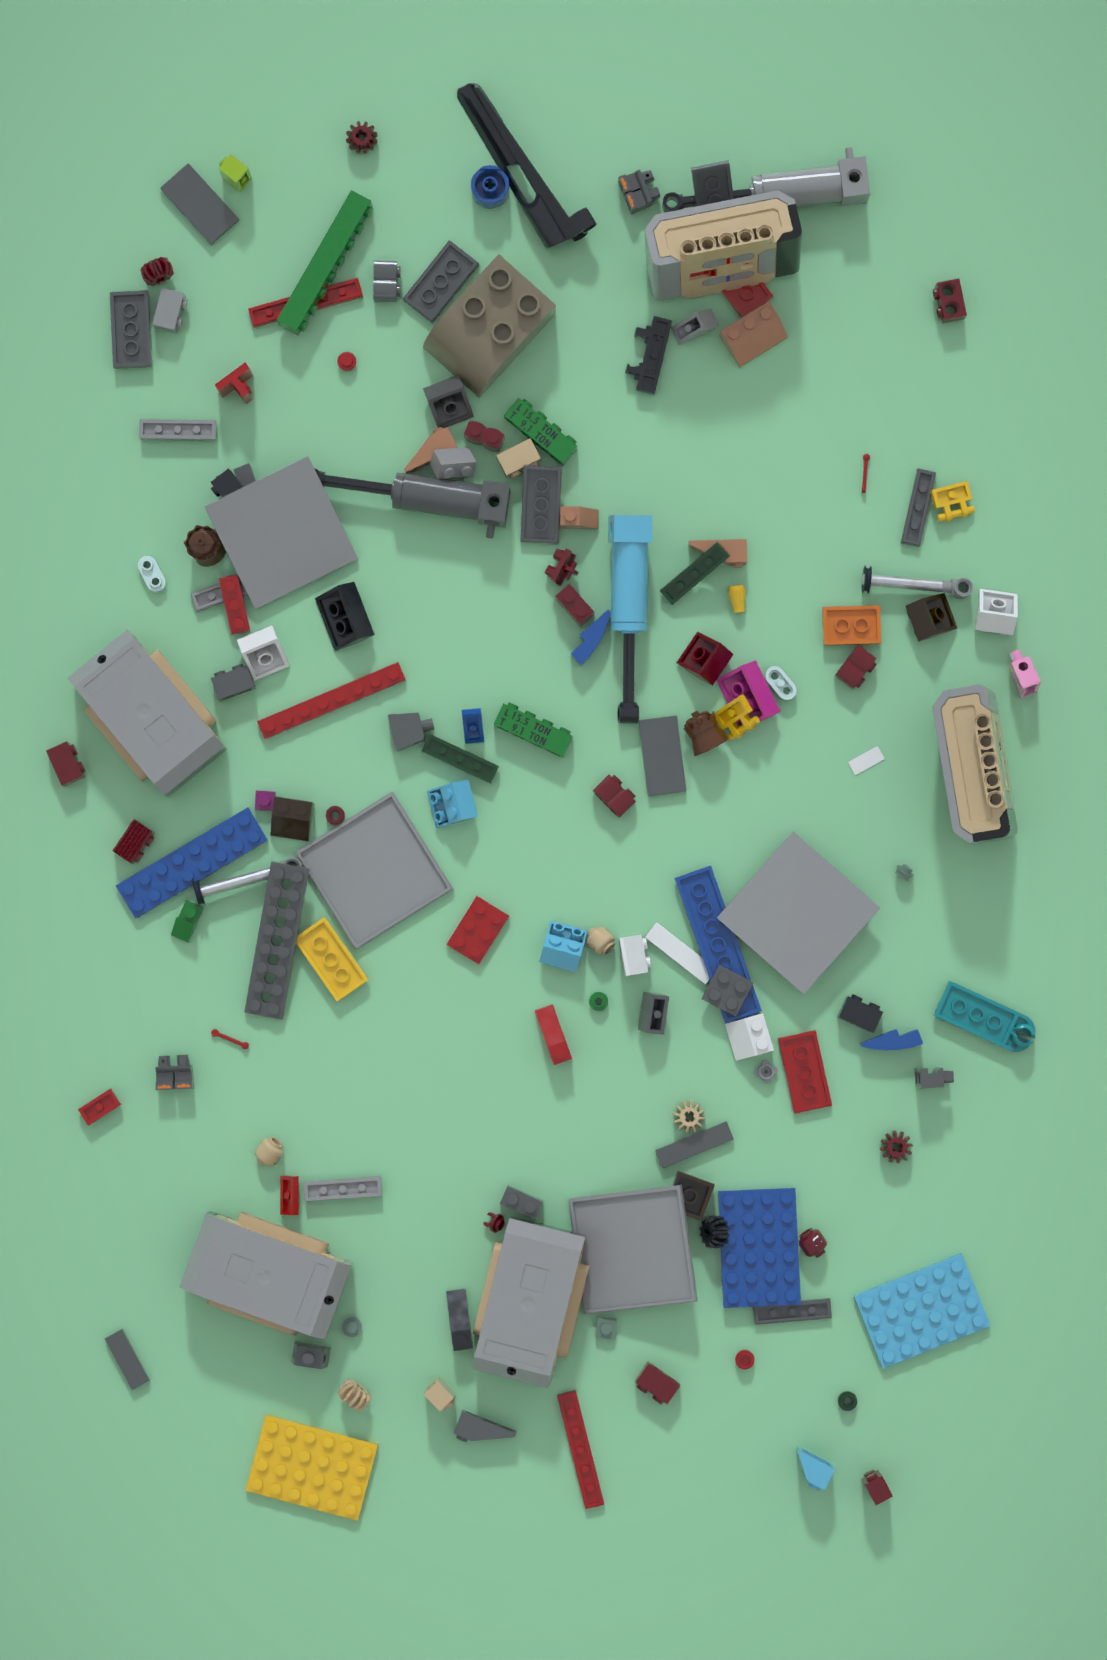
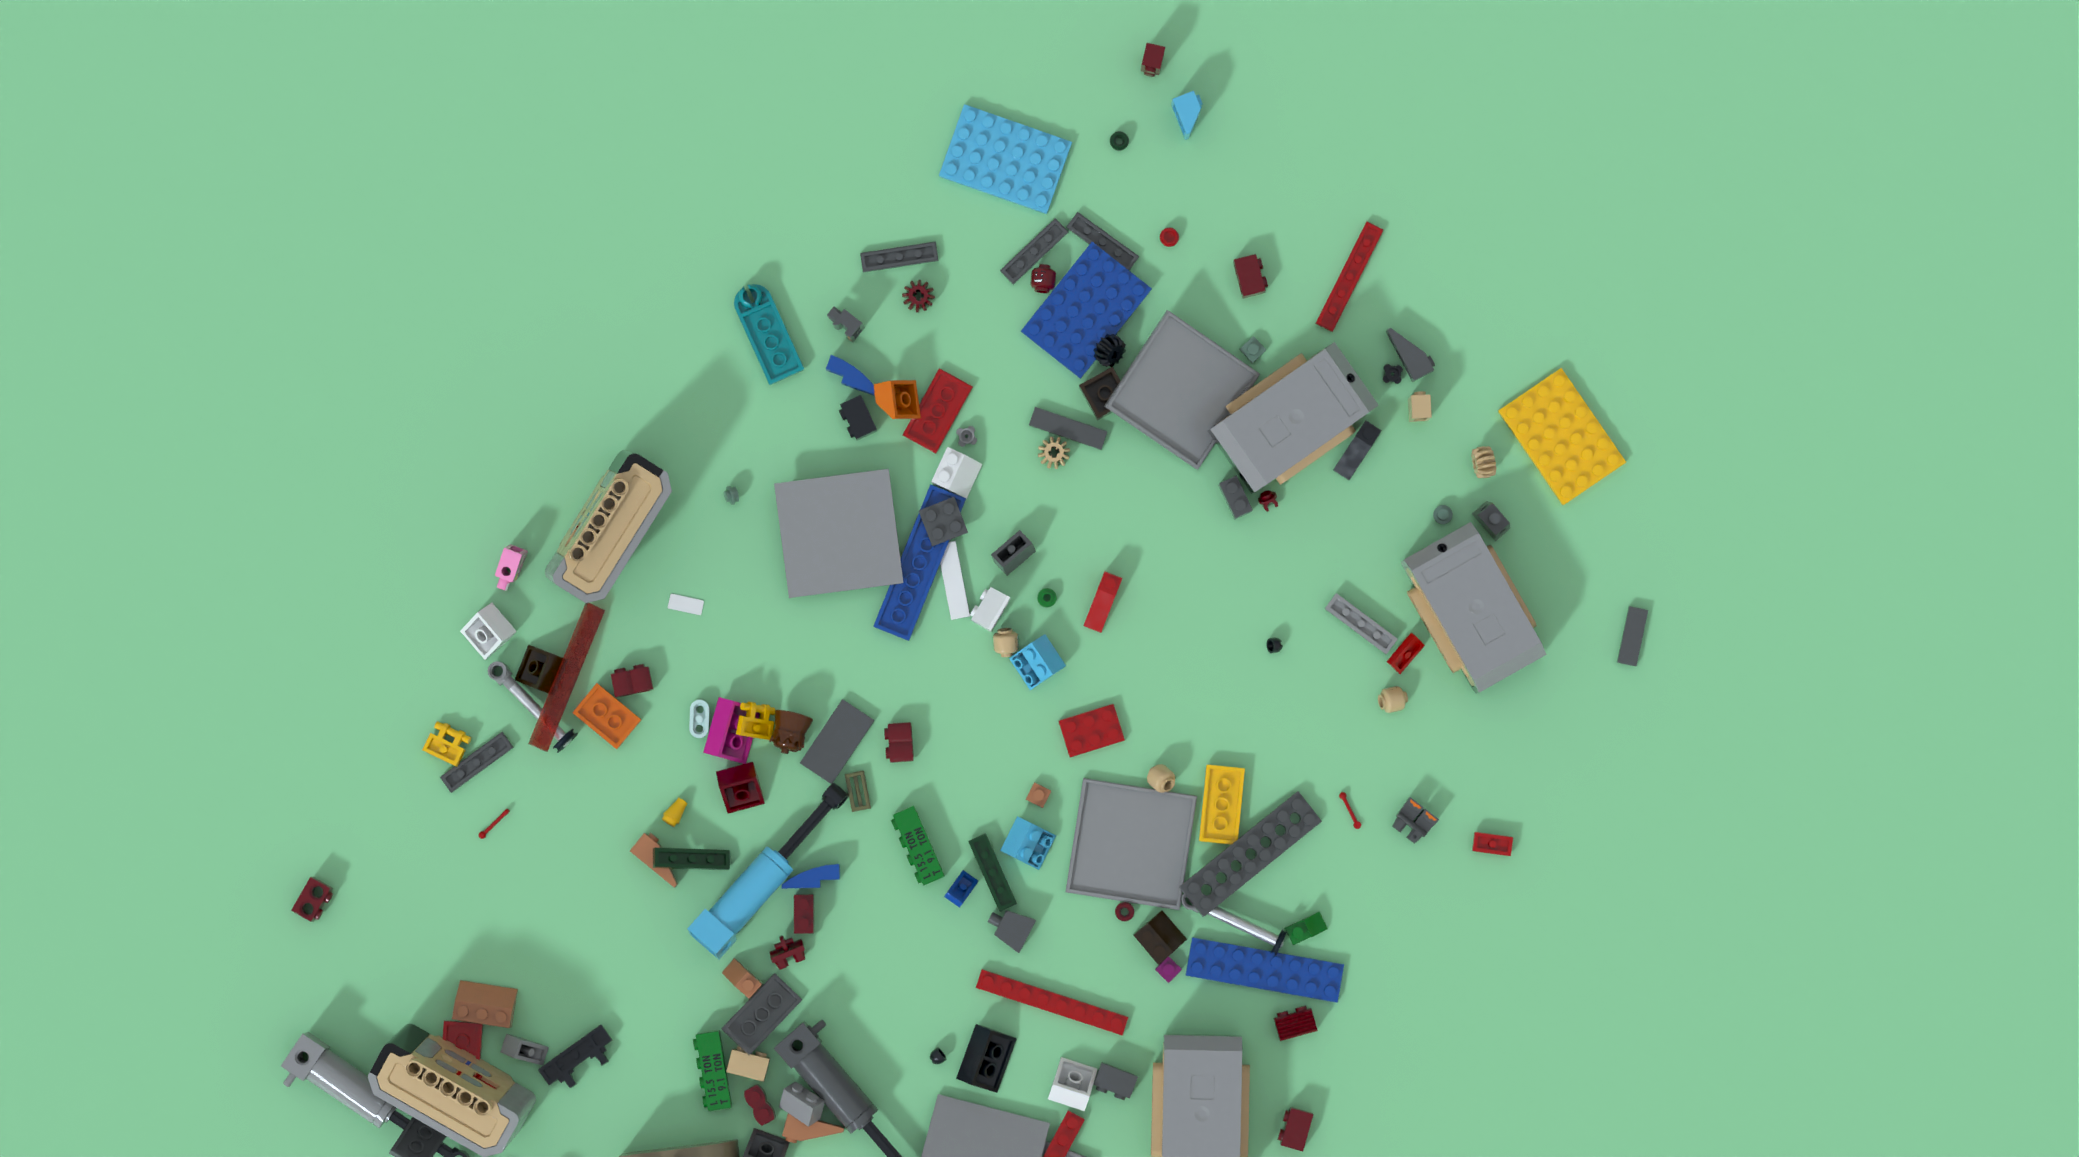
camera: 140 degrees left, 0 degrees up
(382, 586) = (937, 1056): none -> black hinge
(393, 939) = (1161, 778): none -> tan head
(395, 1114) = (1274, 645): none -> black hinge
(475, 846) = (1038, 795): none -> nougat plate
(483, 1407) = (1397, 373): none -> black plate
(612, 740) = (854, 775): none -> olive tile
(838, 1258) = (1034, 251): none -> dark grey tile
(842, 1054) = (898, 398): none -> orange slope
(907, 627) = (566, 677): none -> clear red plate
(936, 1164) = (899, 257): none -> dark grey tile

